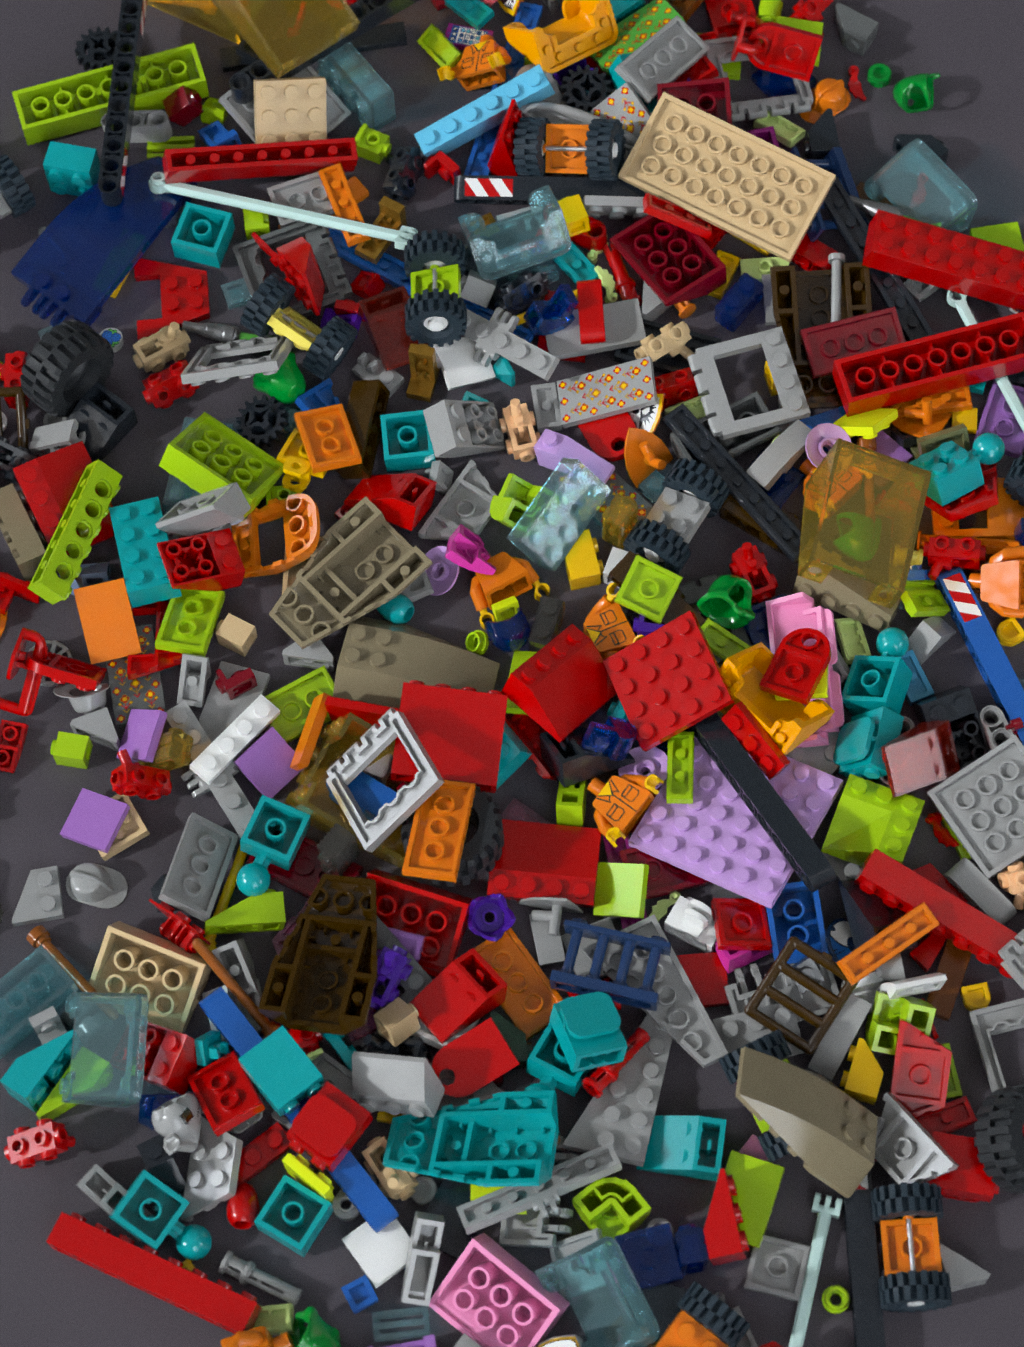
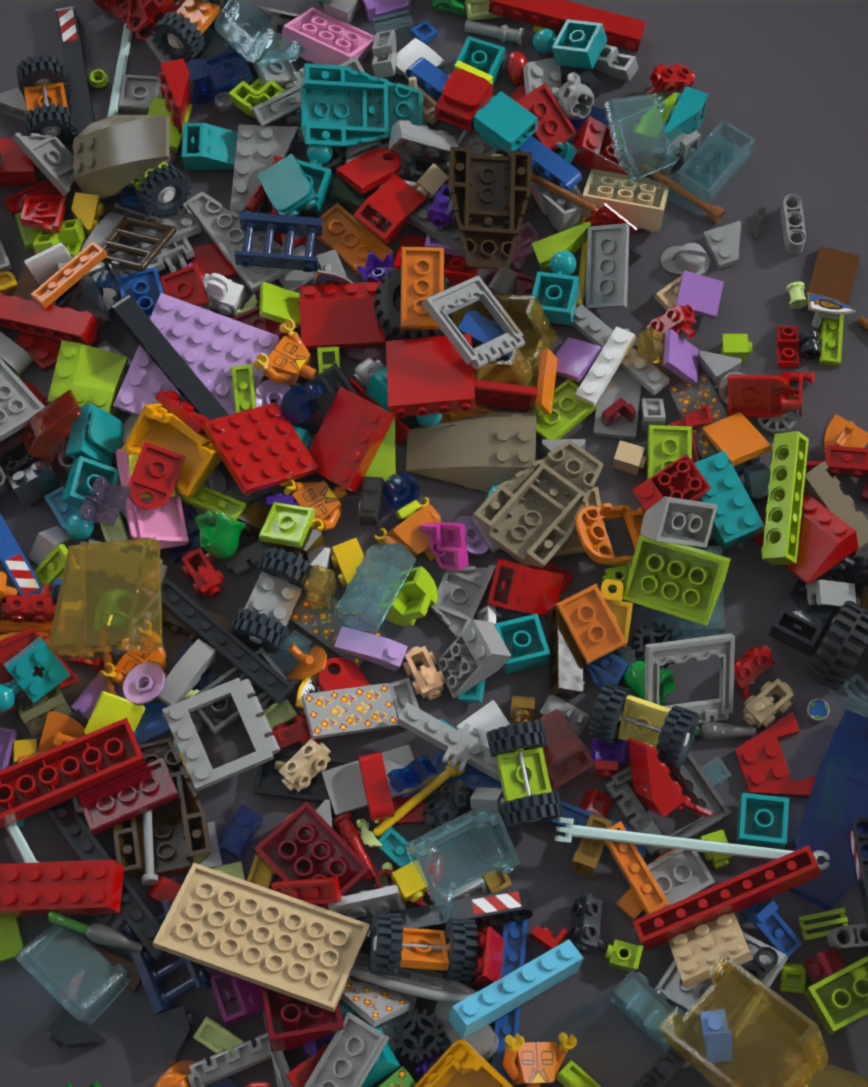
camera: 170 degrees right, 0 degrees up
(307, 20) = (716, 1036): none -> medium blue slope
(477, 642) = (427, 482): lime plate -> none
(523, 784) = (365, 370): none -> light grey head
(858, 640) = (105, 502): none -> clear purple hinge

